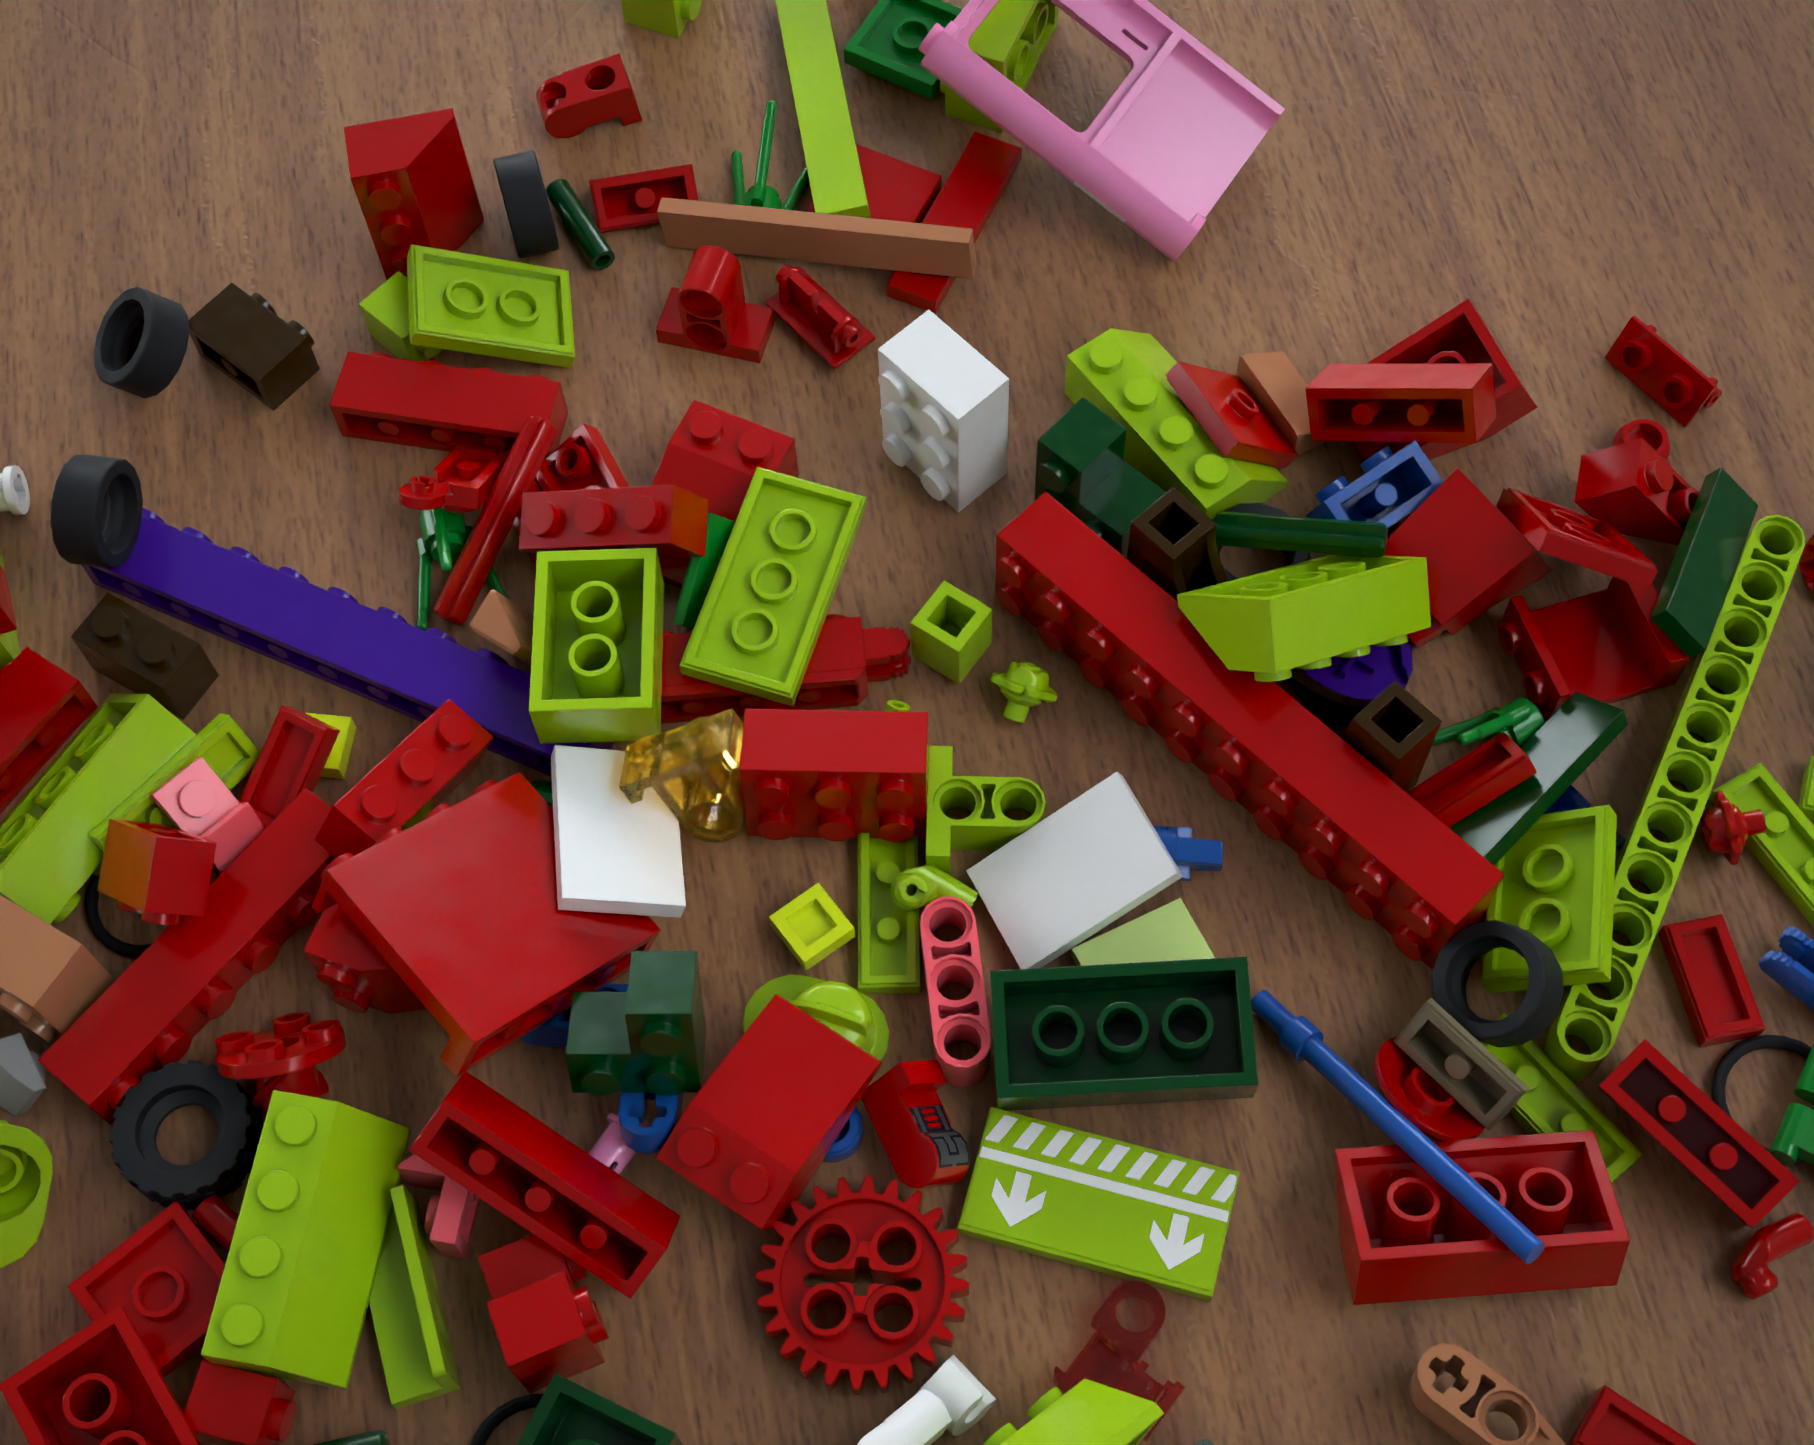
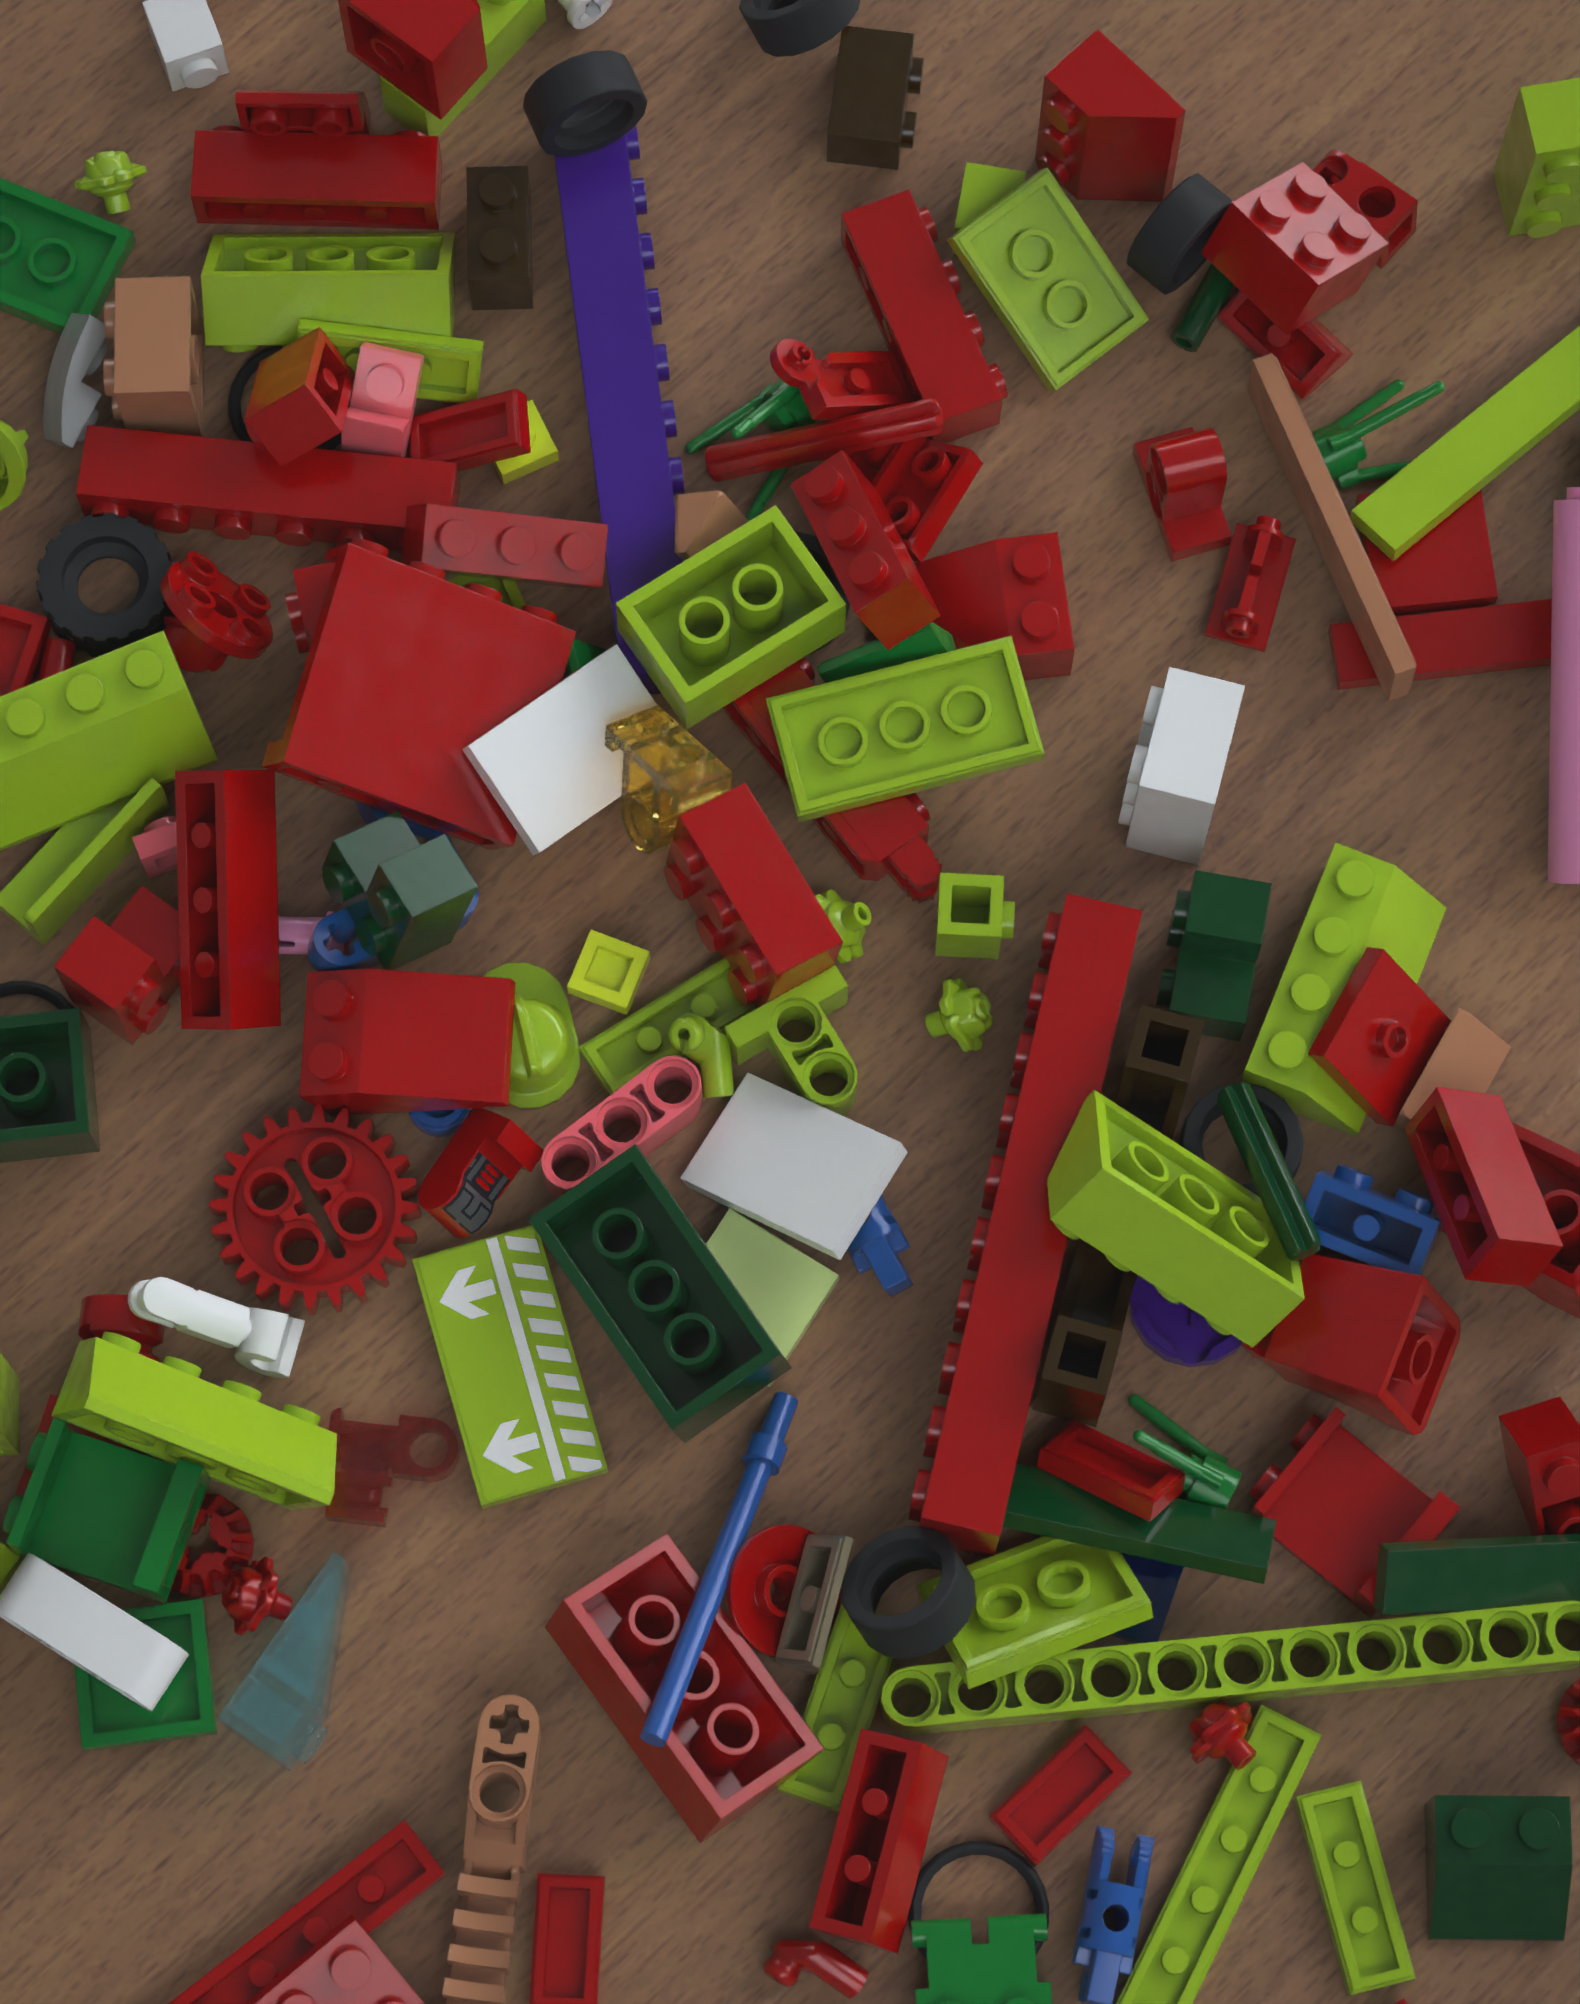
camera: 55 degrees right, 10 degrees up
(593, 141) = (1294, 247): none -> red brick
(1576, 537) = (1430, 1429): red tile -> none

